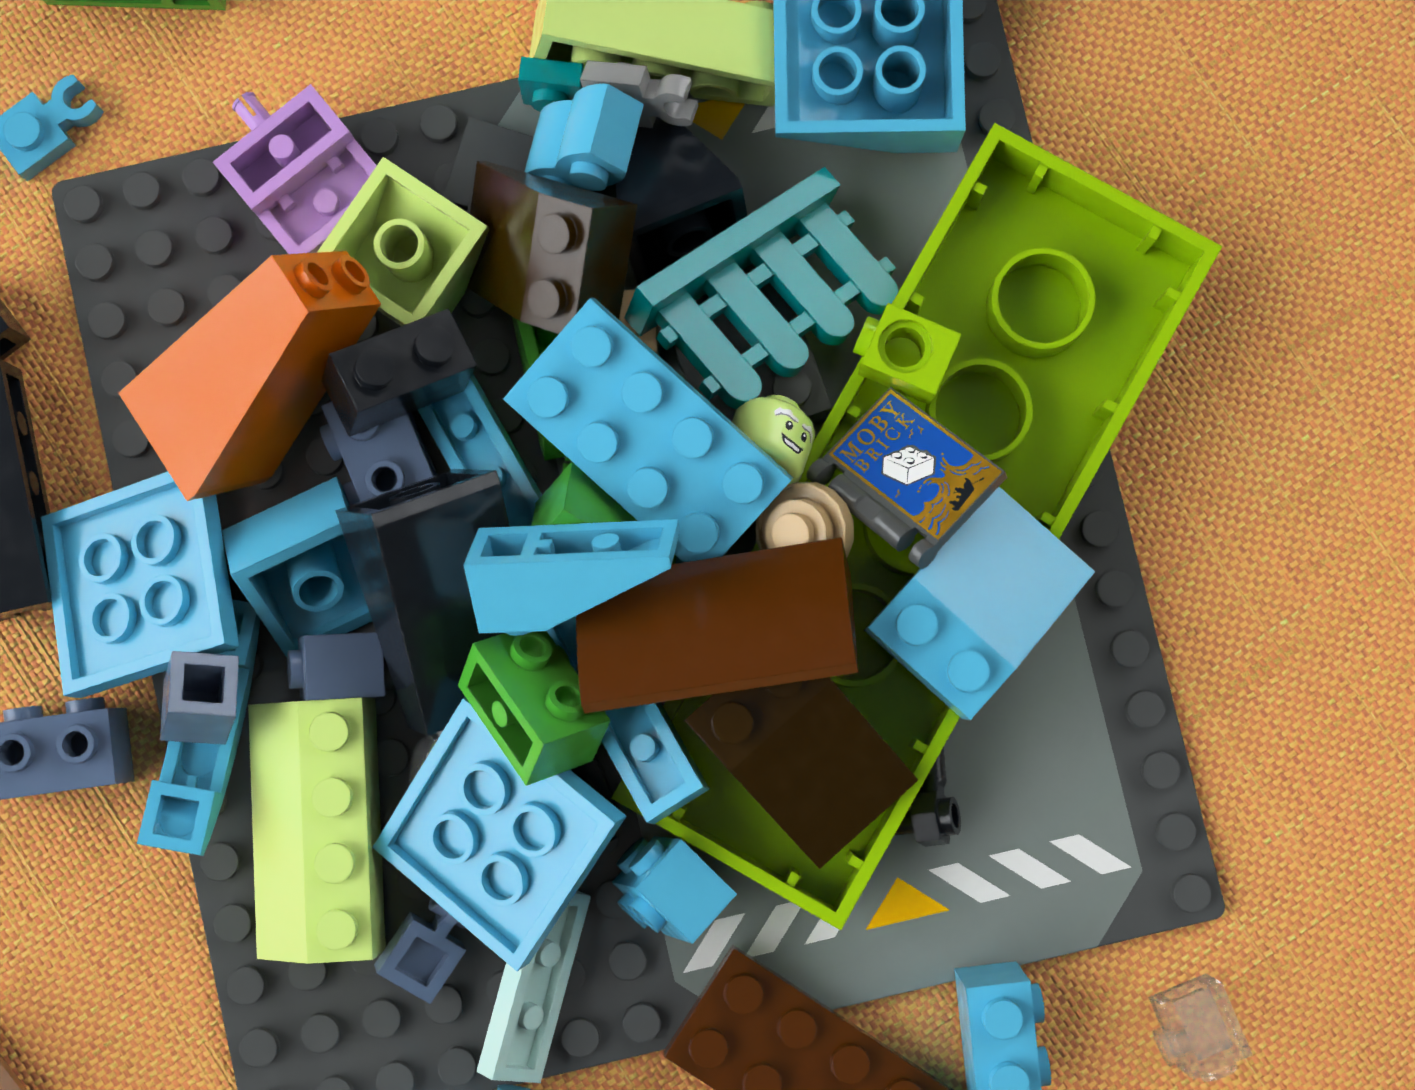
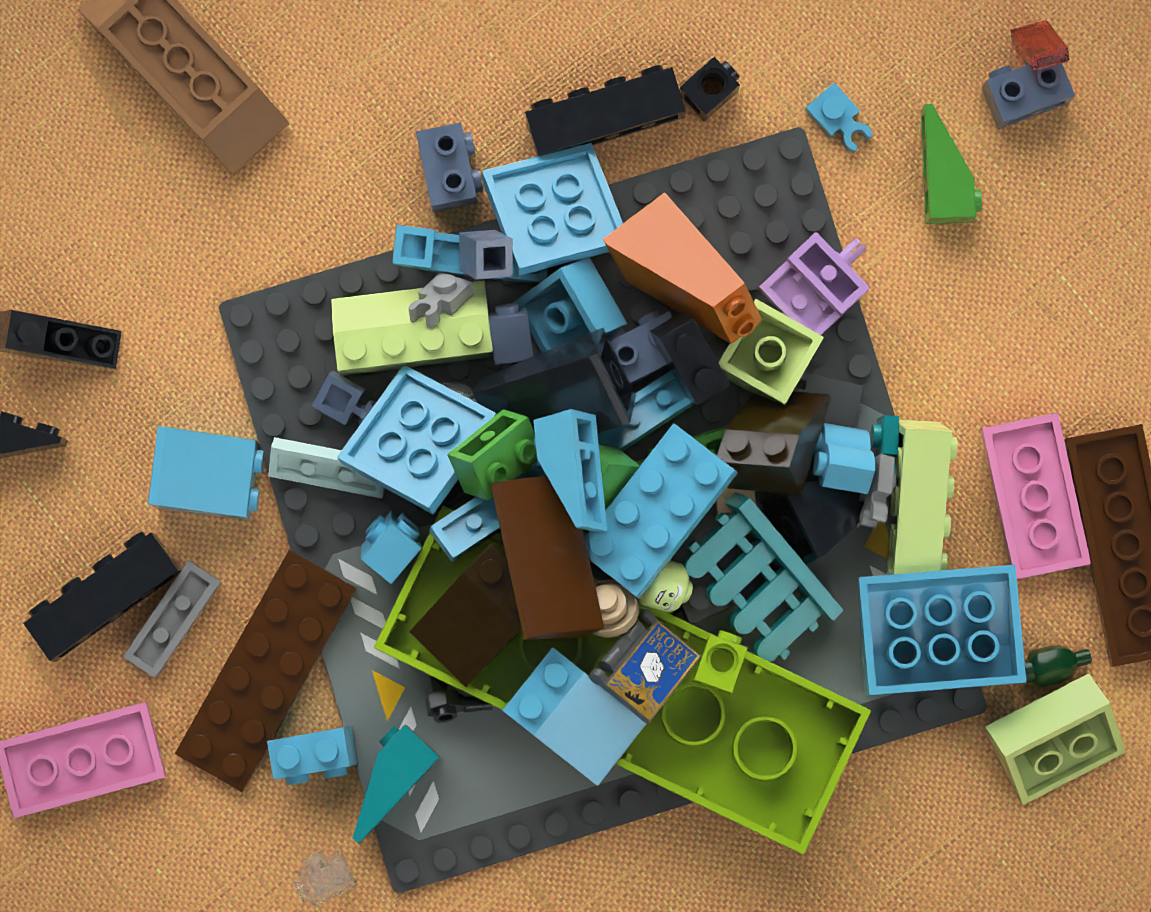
camera: 85 degrees right, 0 degrees up
(262, 777) = (441, 294): none -> light grey plate
(1038, 903) = (395, 771): none -> teal slope

